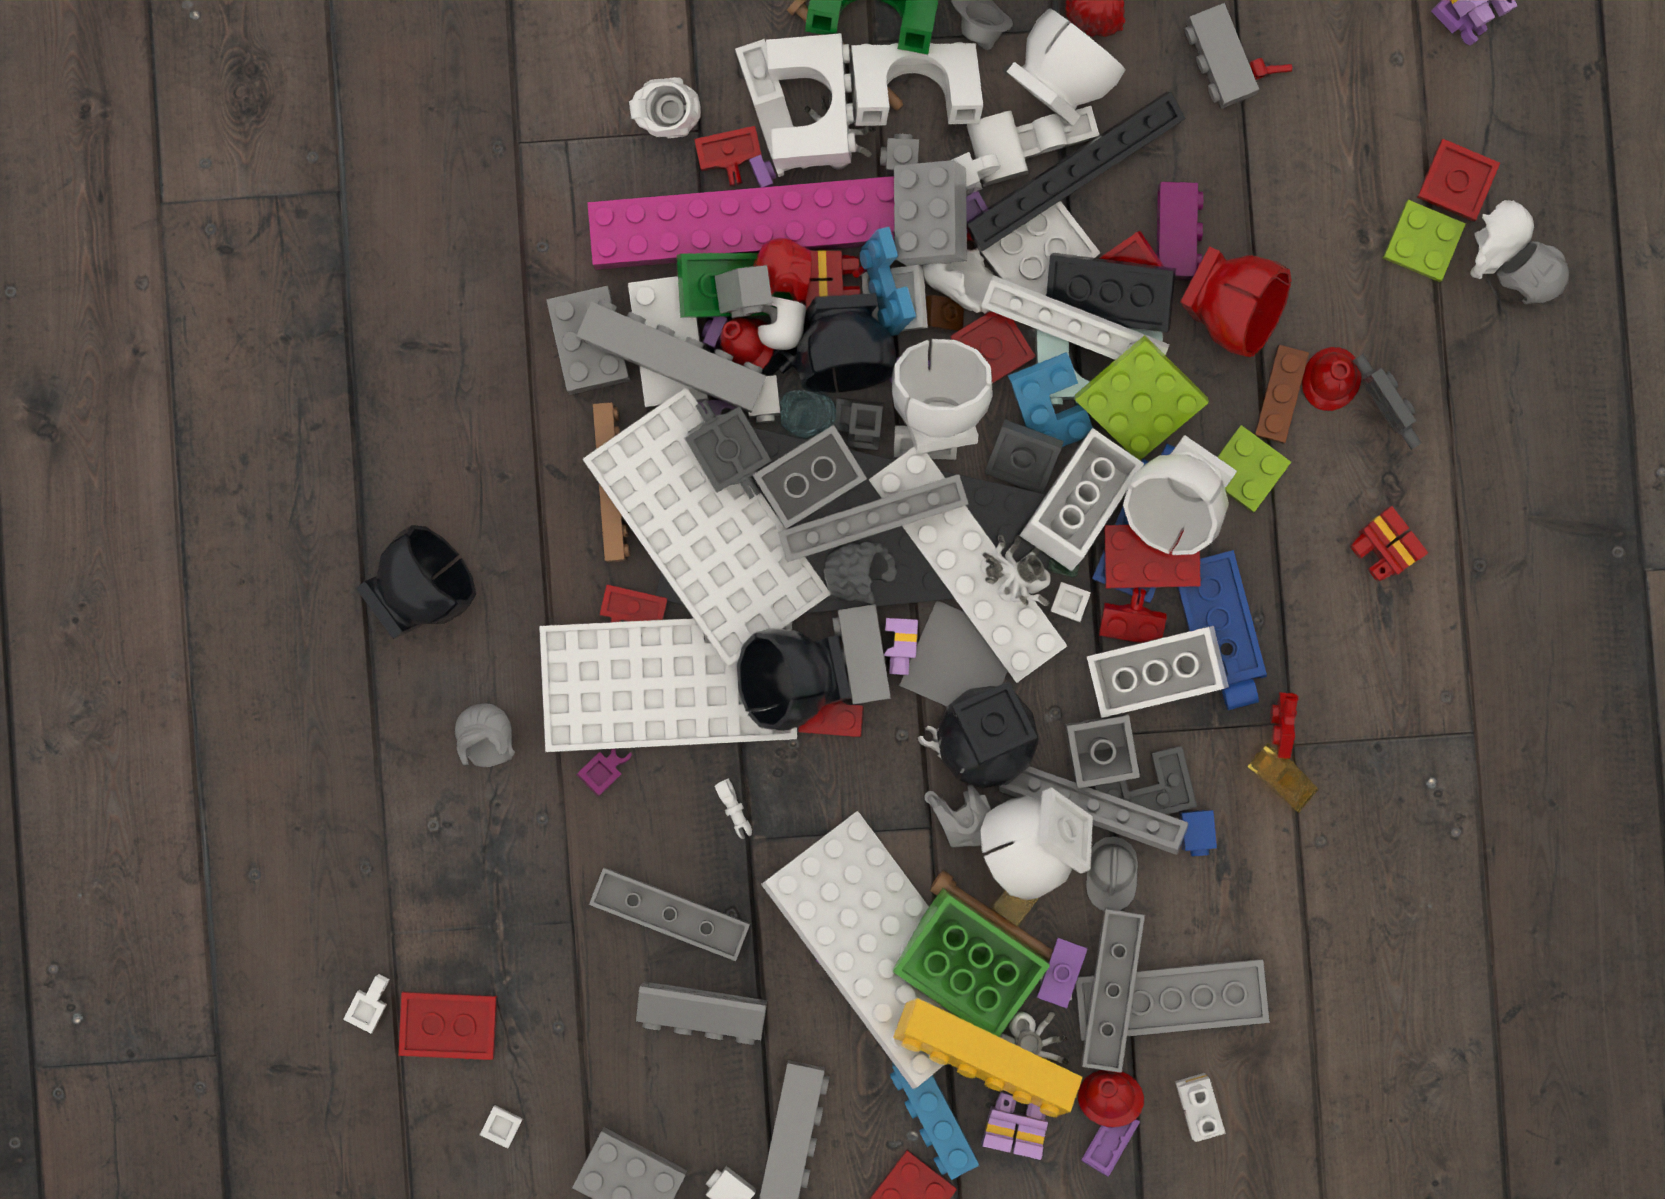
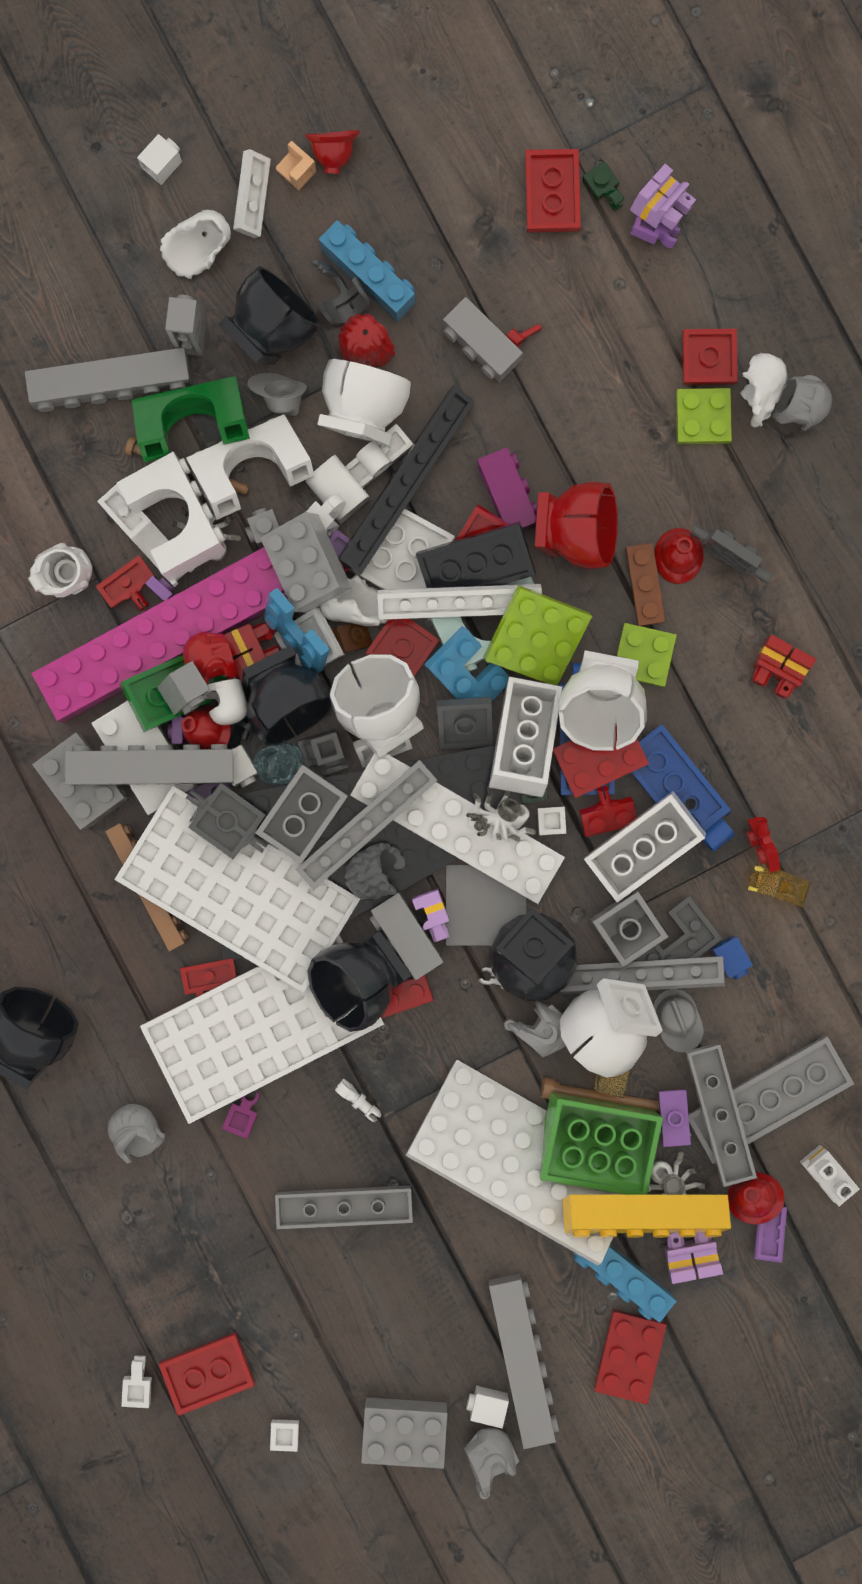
camera: 25 degrees left, 0 degrees up
(701, 1011) = (402, 1274): light grey slope -> none

